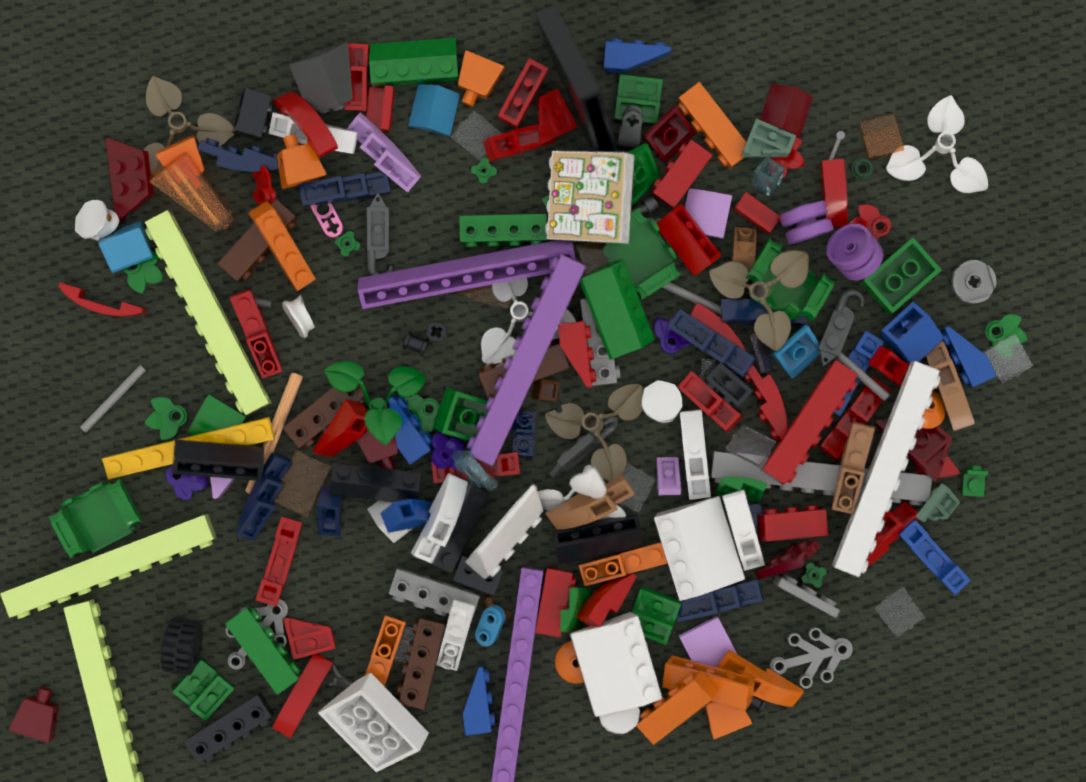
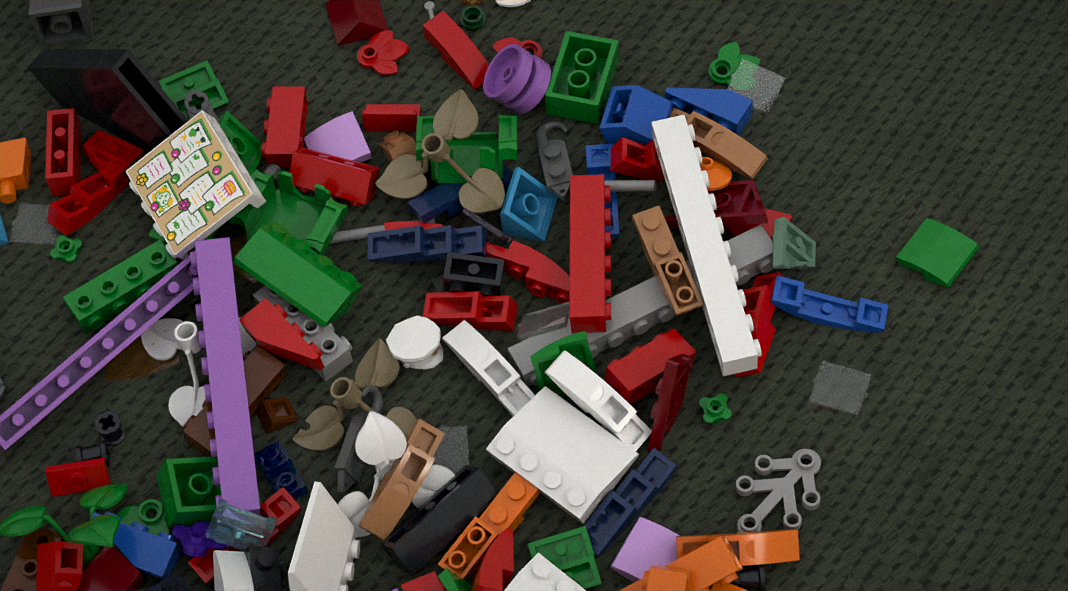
camera: 25 degrees left, 30 degrees down
(397, 353) = (77, 476): none -> red plate
(628, 56) = (168, 53): blue slope -> none
(664, 333) = (383, 277): dark purple plate -> none
(668, 134) = (245, 98): dark red slope -> none
(668, 476) = (477, 411): lavender slope -> none
(713, 124) = (290, 67): orange brick -> none
(767, 176) = (377, 73): clear light blue brick -> none
(768, 141) = (354, 42): sand green wing -> none
(805, 219) = (442, 78): medium lavender wheel -> none
(806, 594) = (719, 424): light grey plate -> none
(859, 412) = (635, 264): red slope -> none
(973, 481) = (812, 213): green bracket -> none
(979, 271) = (667, 56): light grey plate -> none
(1029, 564) = (937, 252): none -> green slope

